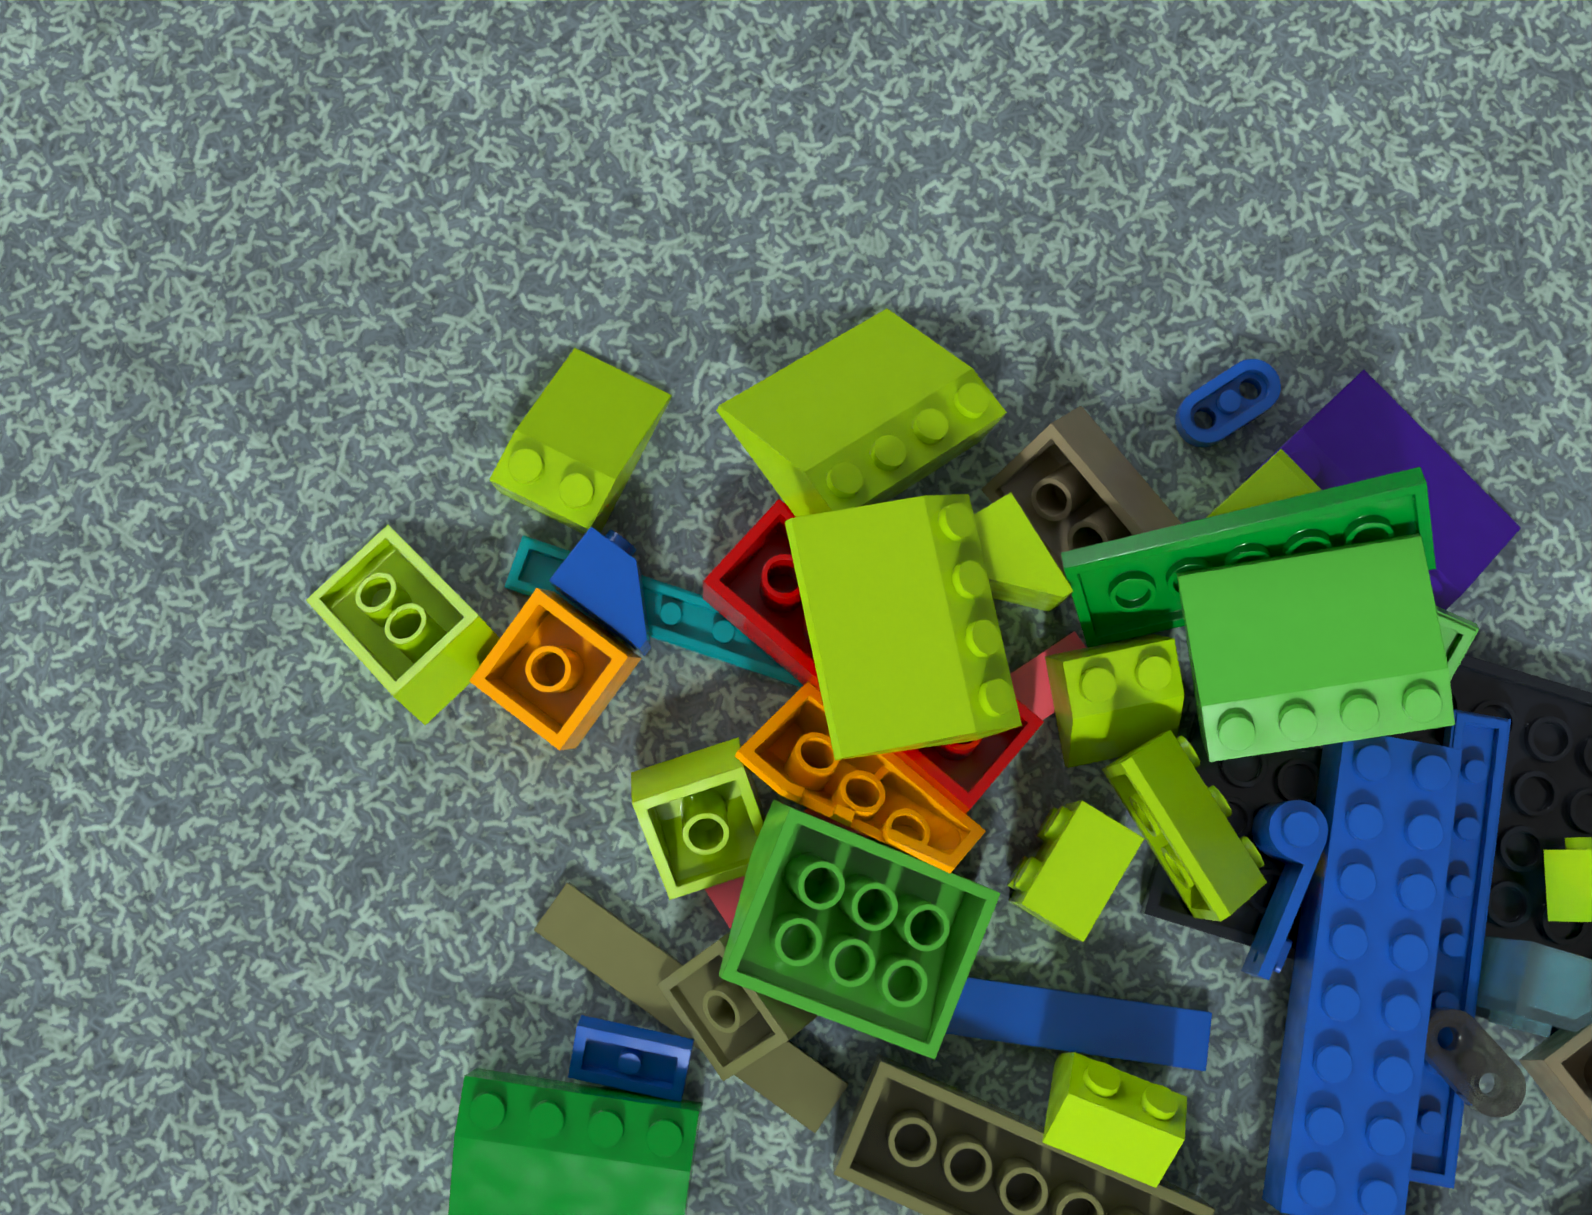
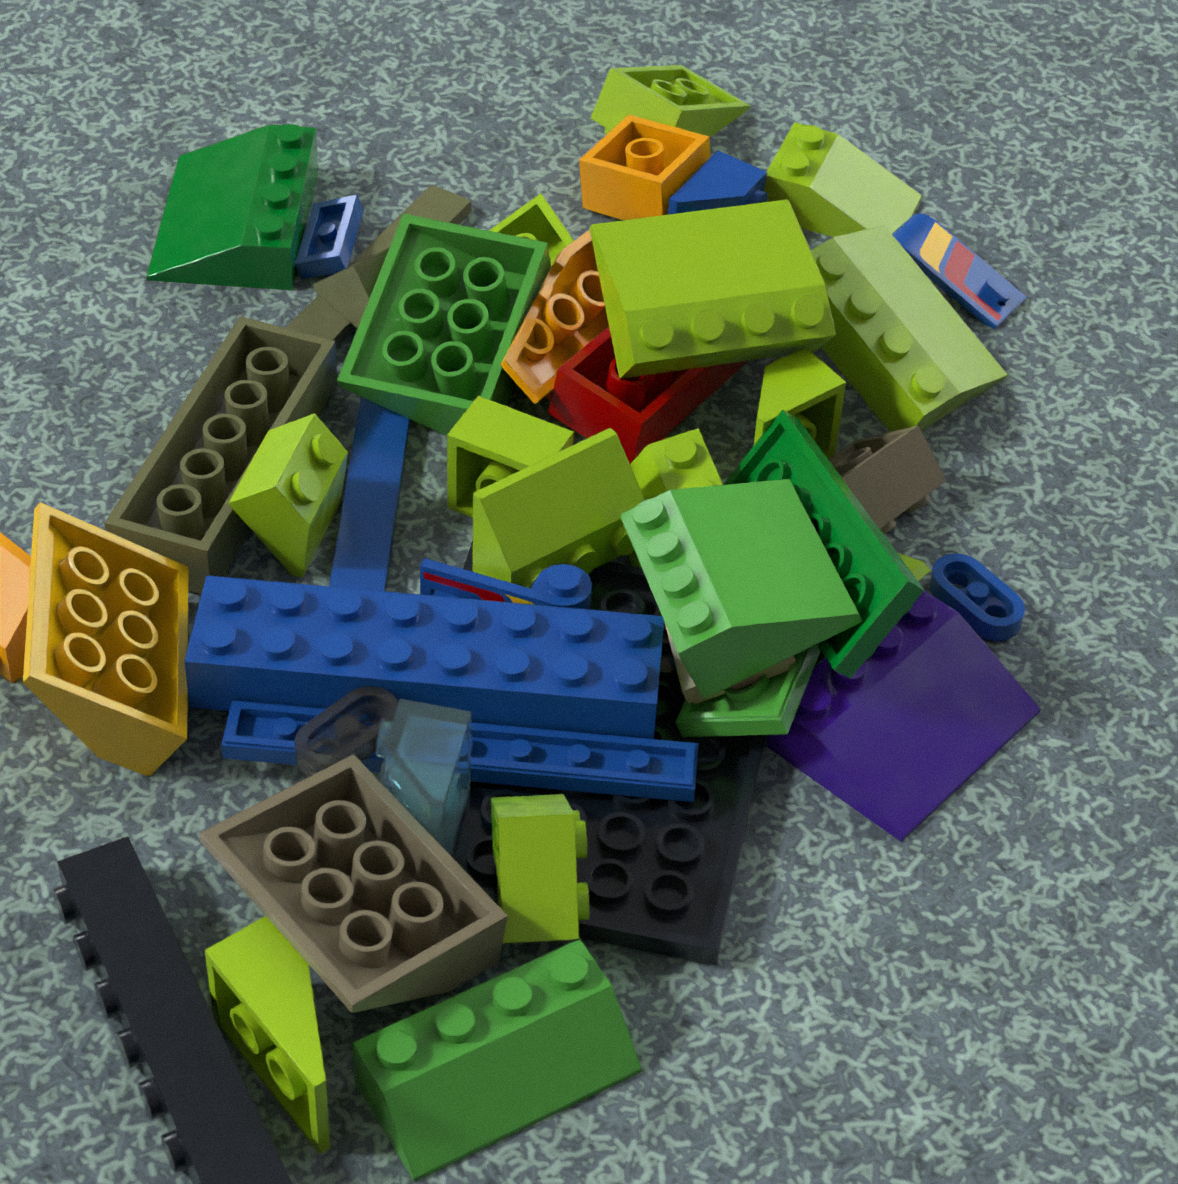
camera: 80 degrees right, 35 degrees down
(708, 352) = (958, 270): none -> blue door

